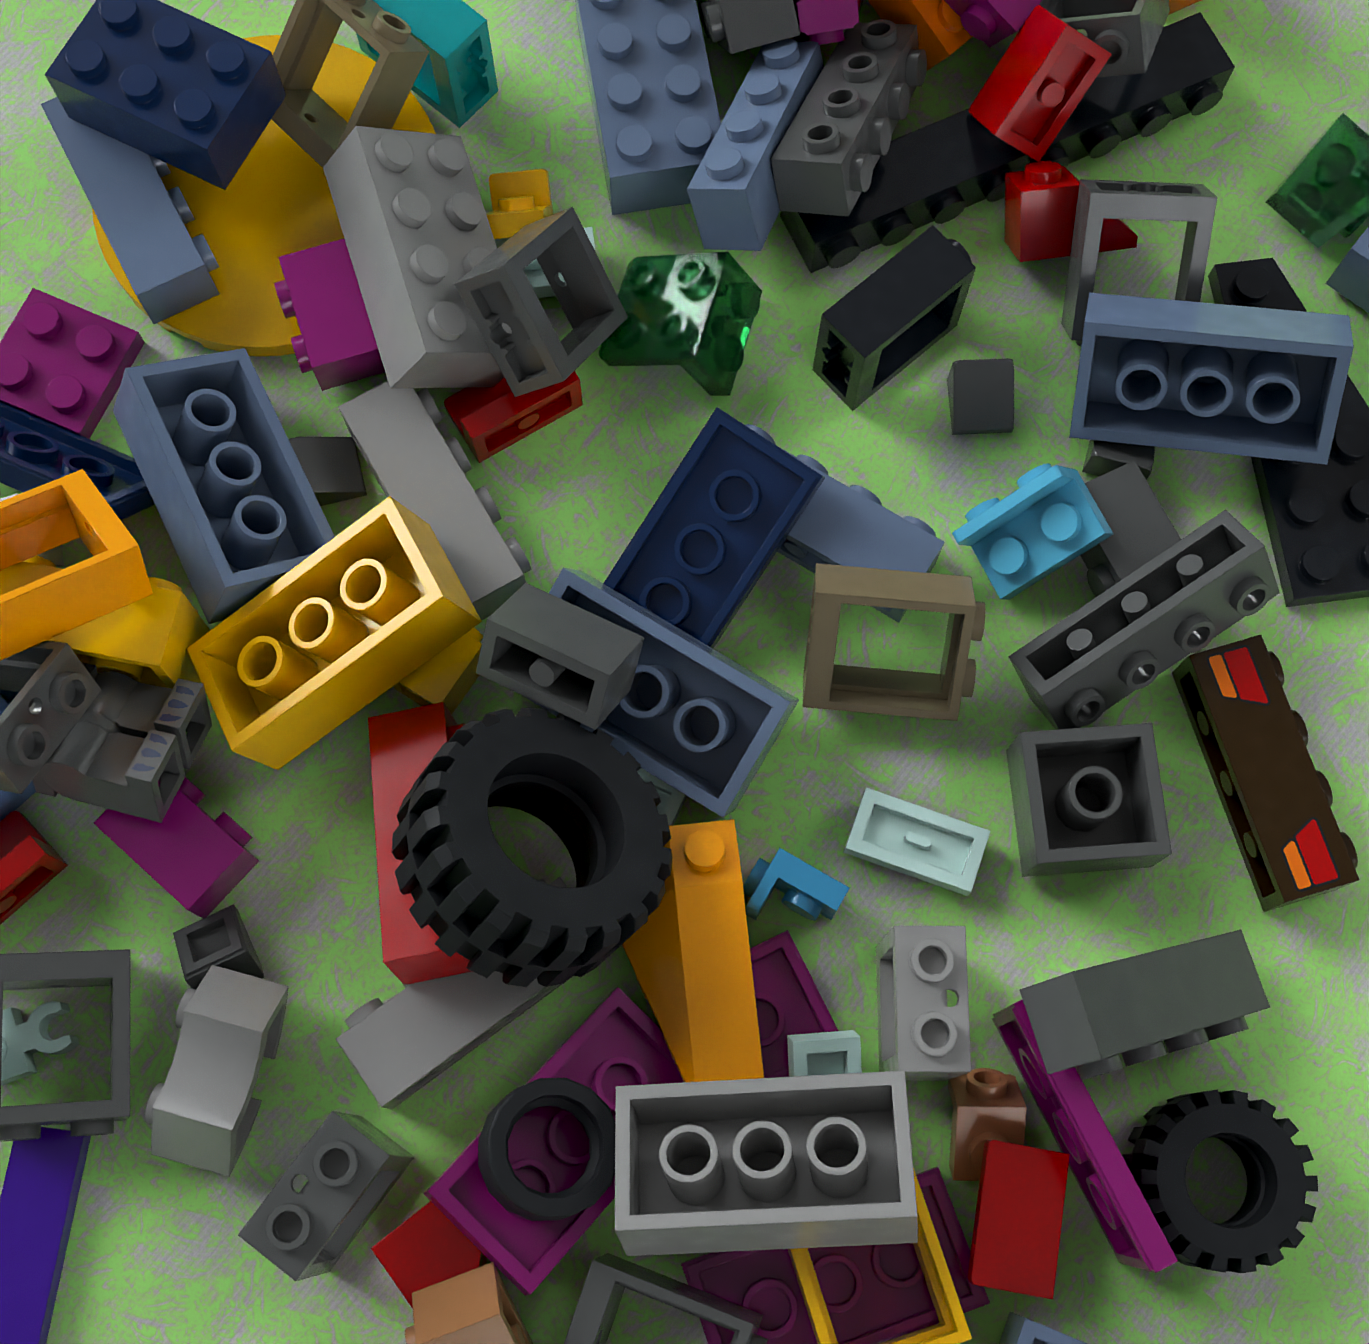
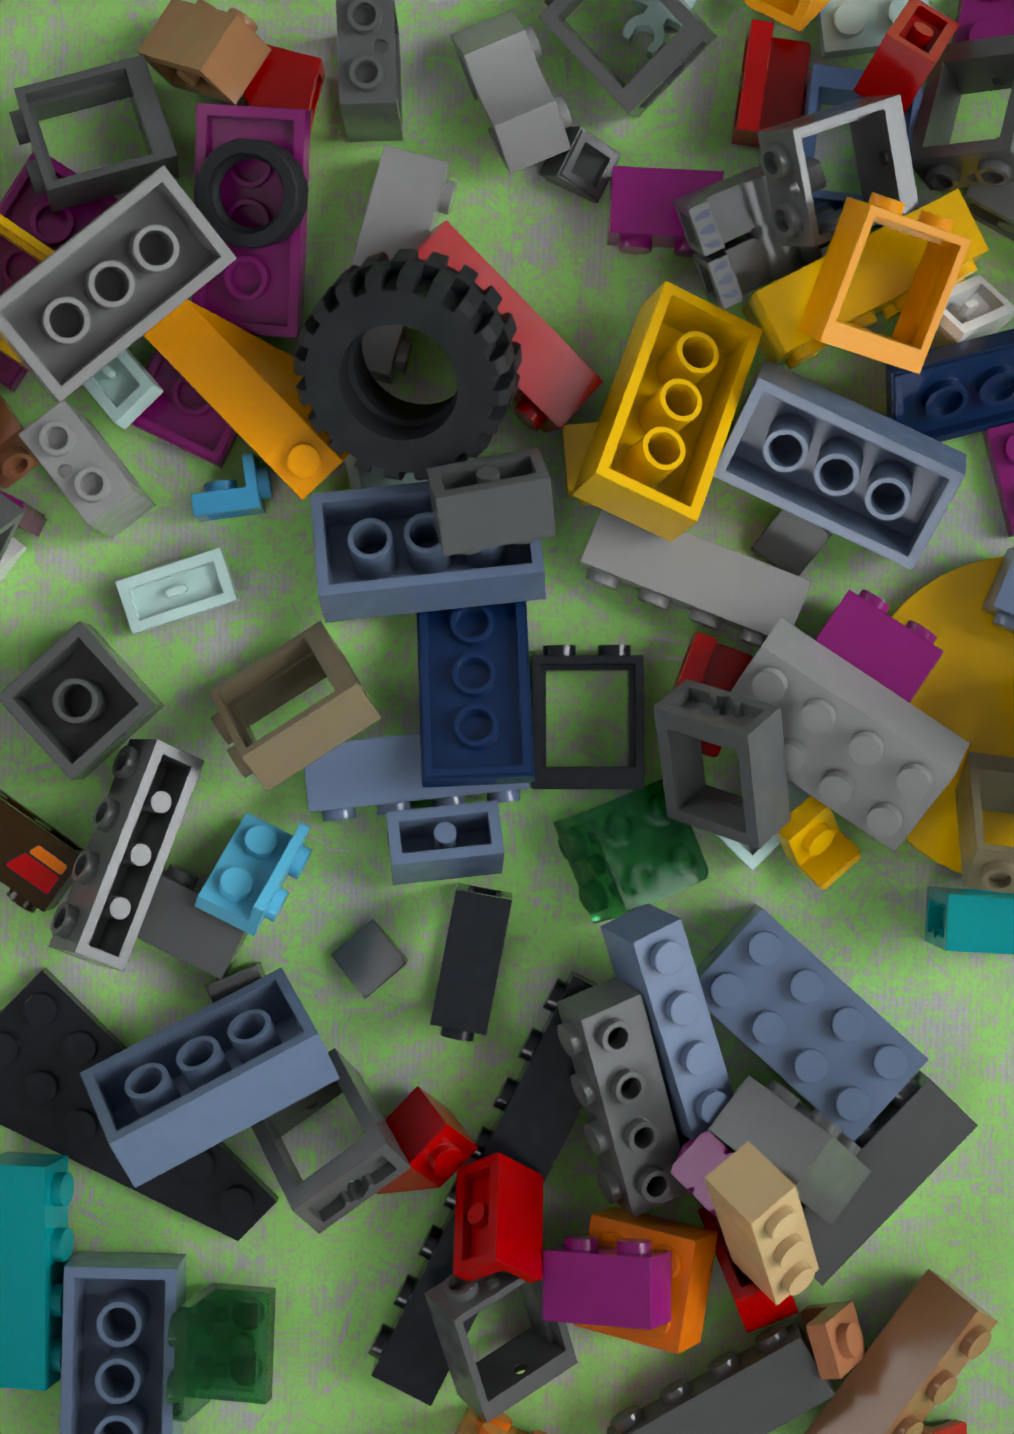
camera: 145 degrees right, 15 degrees up
(650, 388) = (608, 659): none -> black window
(840, 431) = (445, 842): none -> sand blue brick

